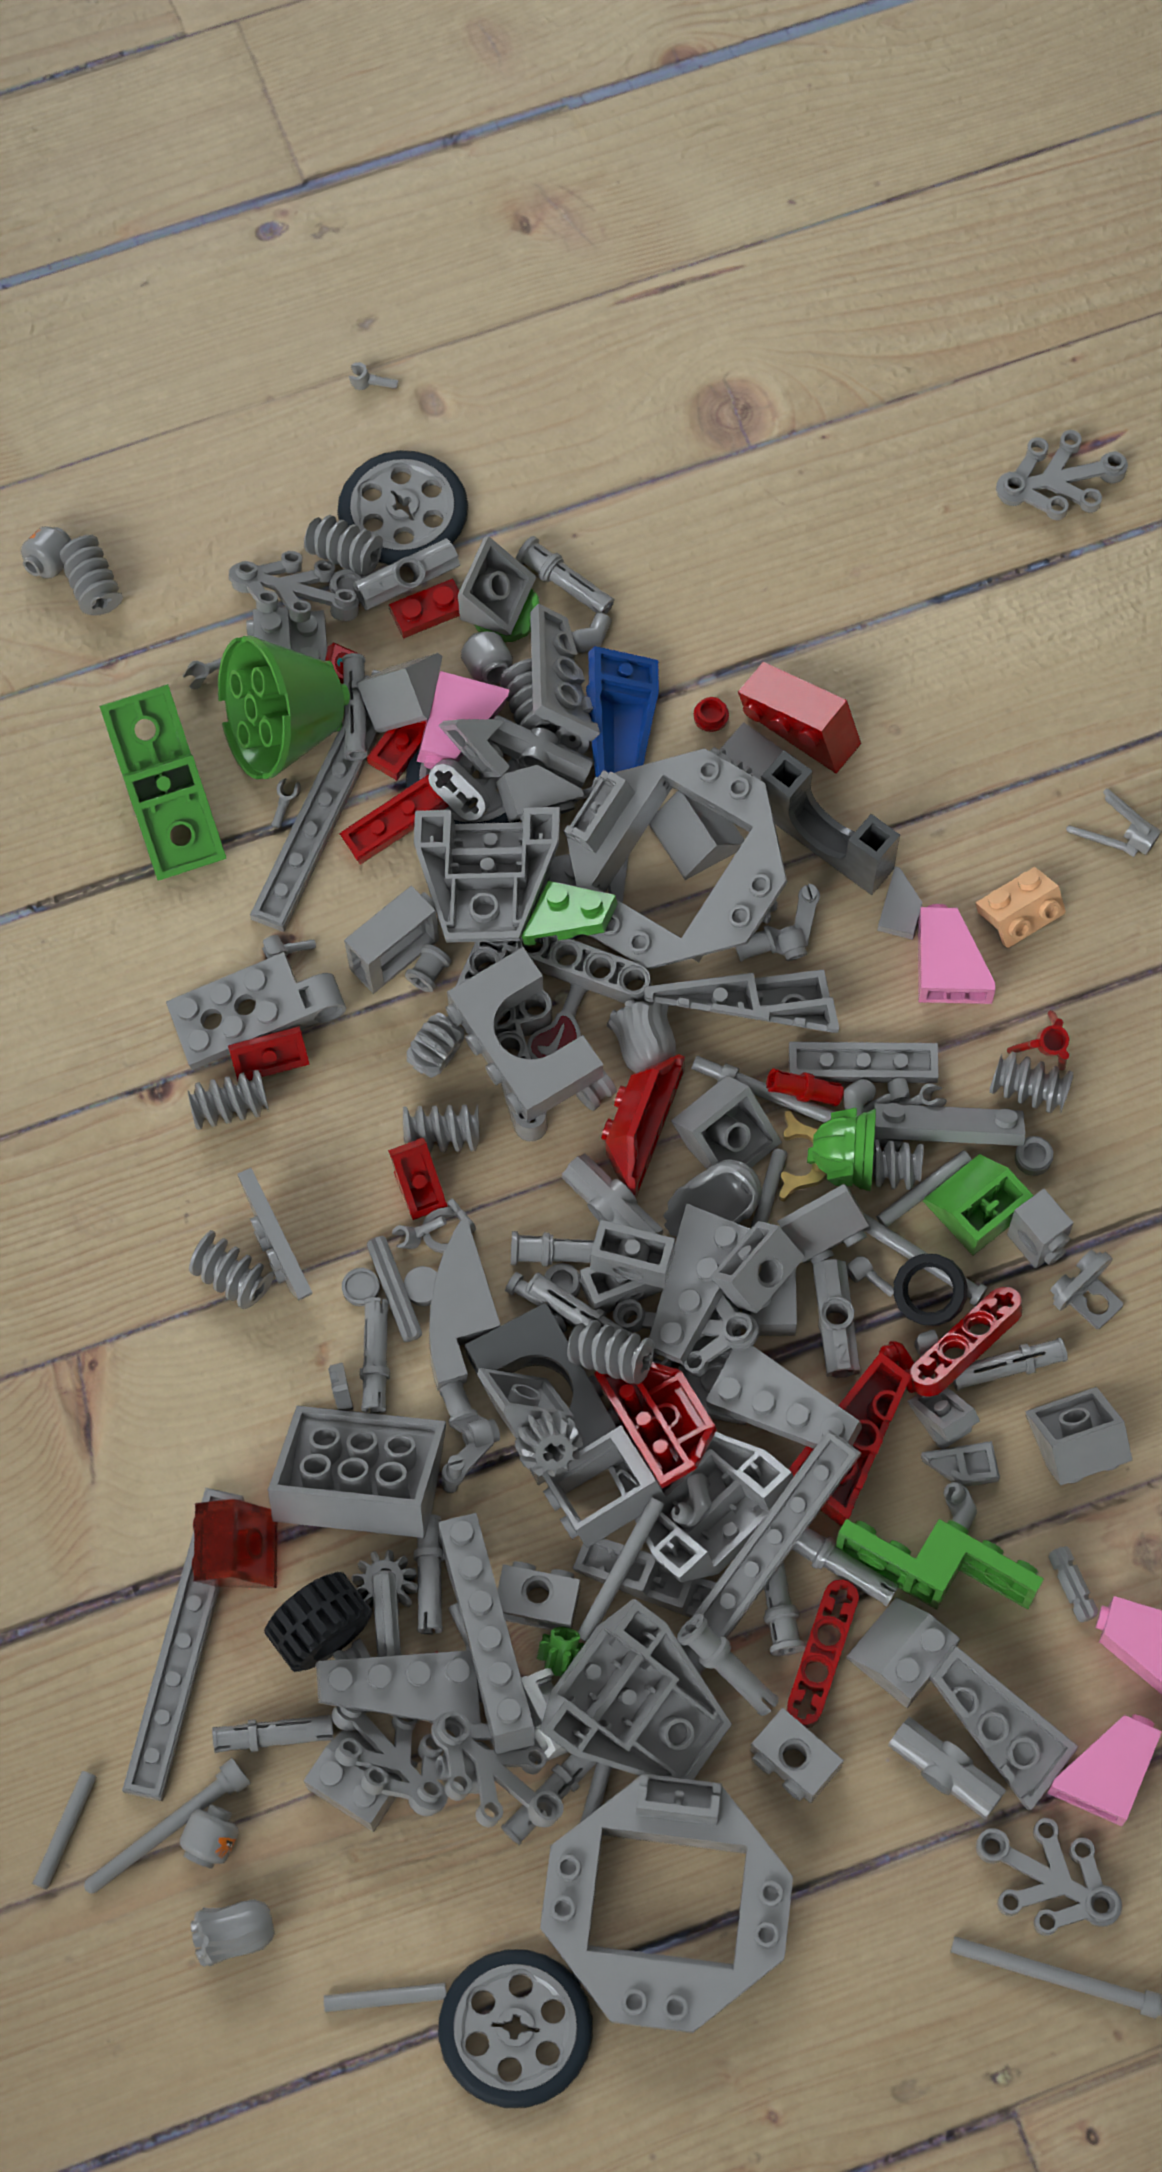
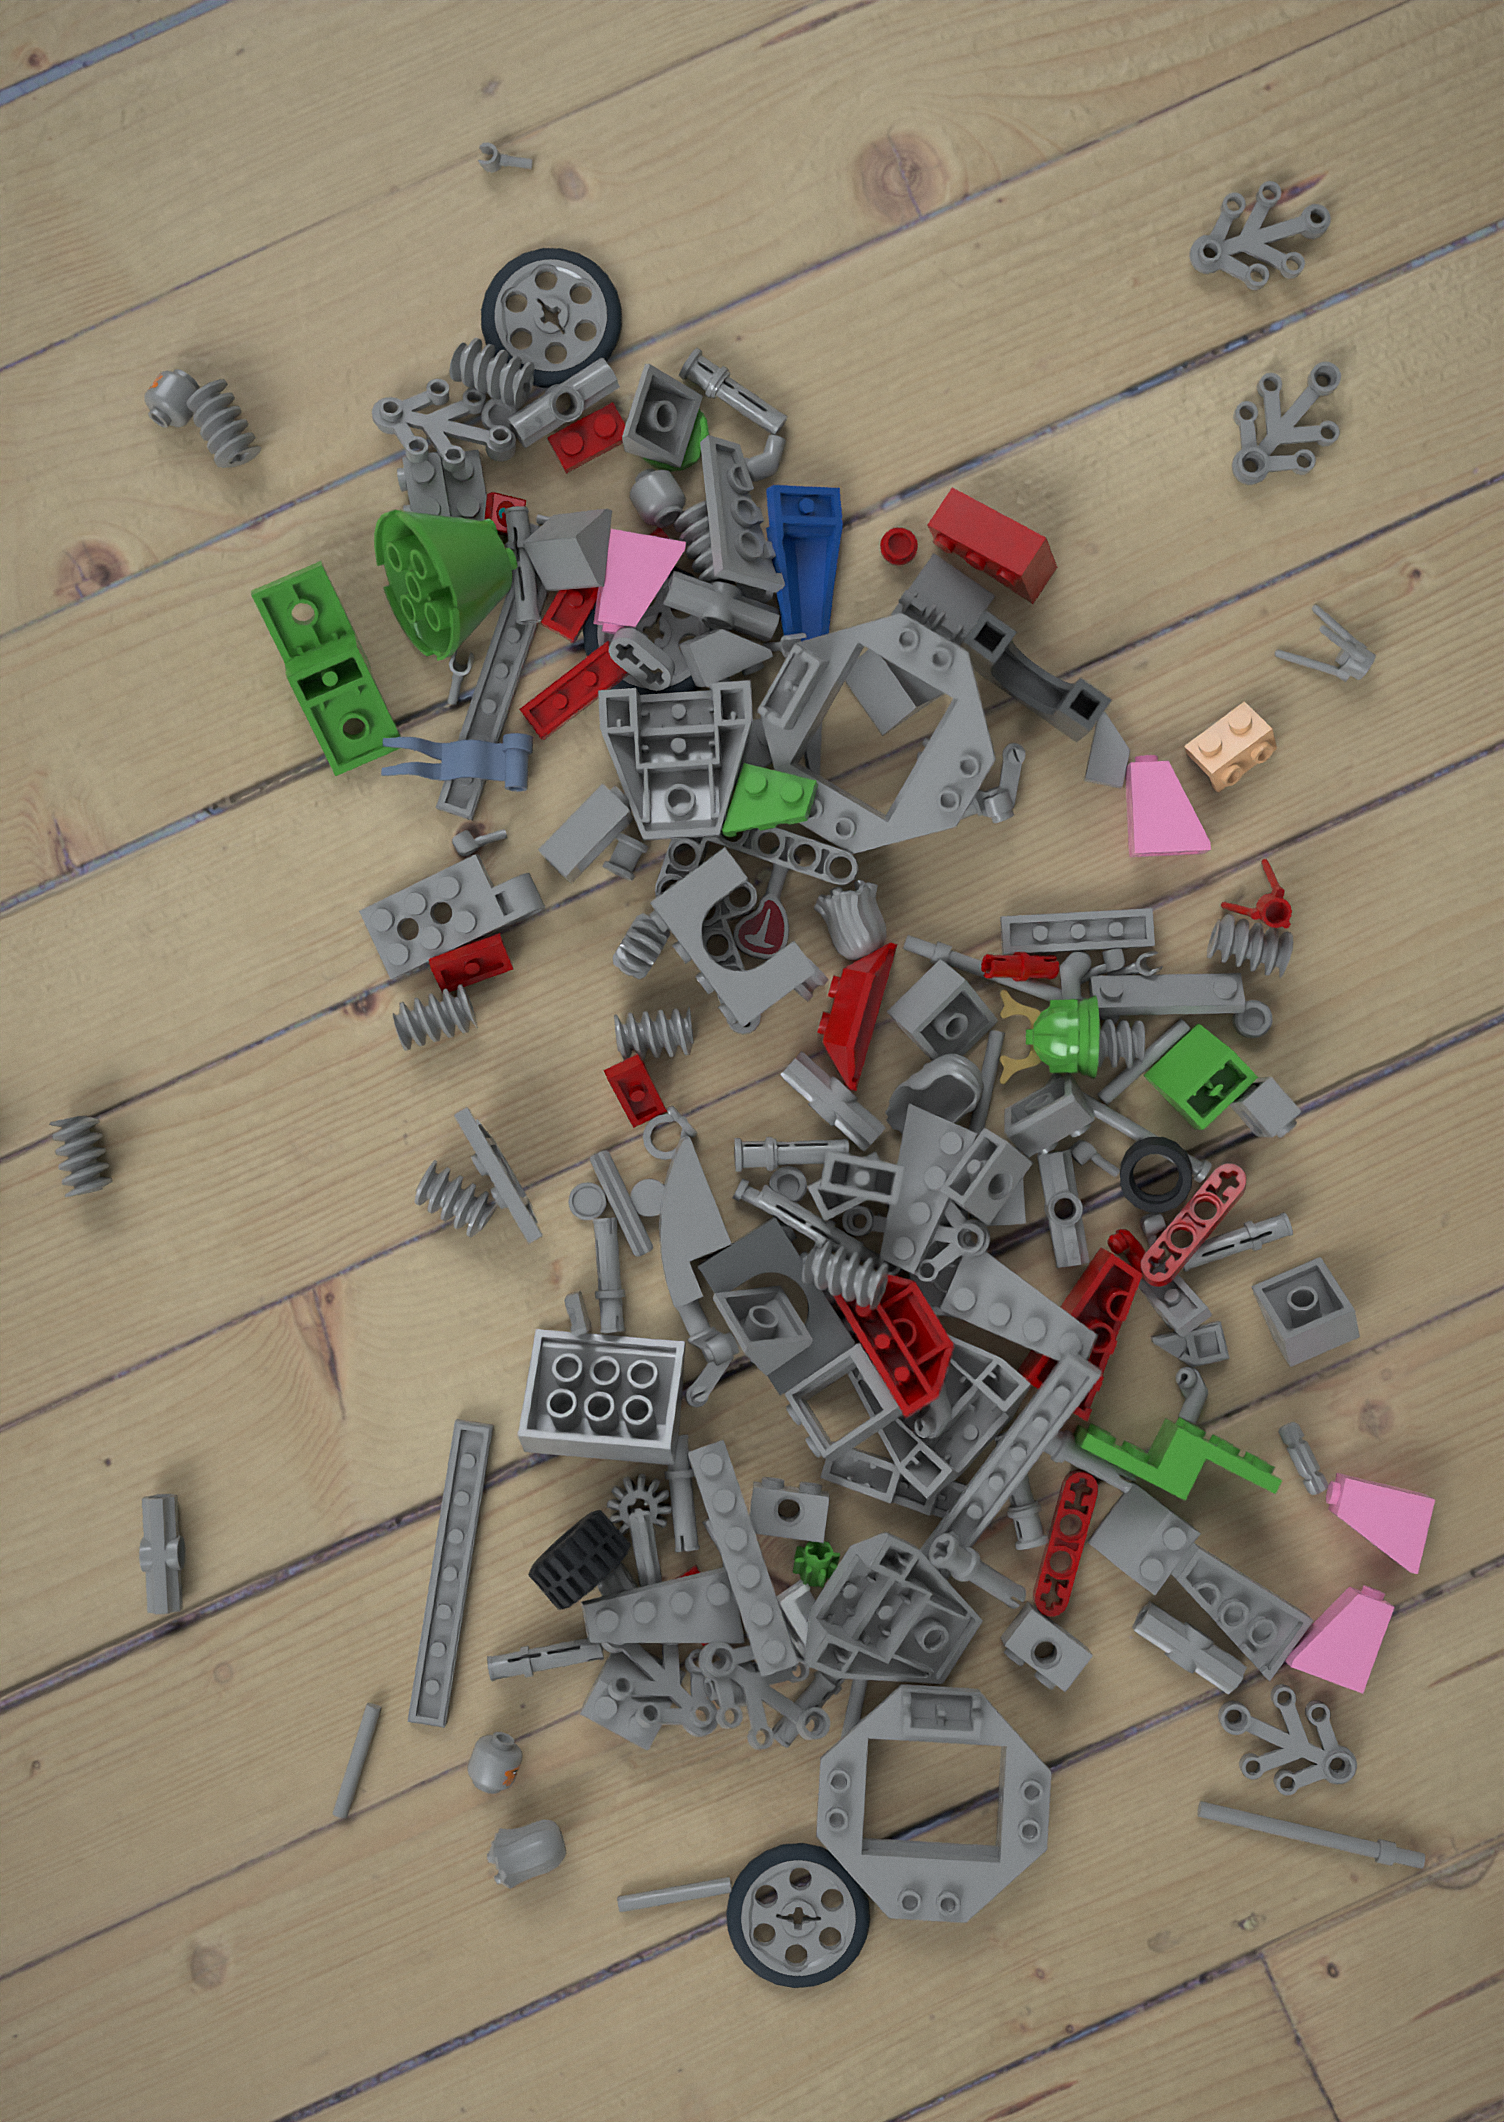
camera: 10 degrees left, 20 degrees up
(201, 671) = (356, 529): light grey hand -> none
(228, 1780) = (508, 1705): light grey piece -> none
(234, 1545) = (490, 1484): clear red slope -> none
(288, 869) = (468, 759): none -> sand blue flag
(414, 1234) = (637, 1144): light grey hand -> none
(472, 738) = (654, 606): light grey slope -> none
(548, 1443) = (790, 1374): light grey gear -> none
(621, 1568) = (868, 1483): light grey bar -> none
(783, 999) = (993, 874): light grey wedge -> none
(1071, 1291) = (1296, 1165): light grey bracket -> none
(1079, 636) = (1282, 430): none -> light grey plant

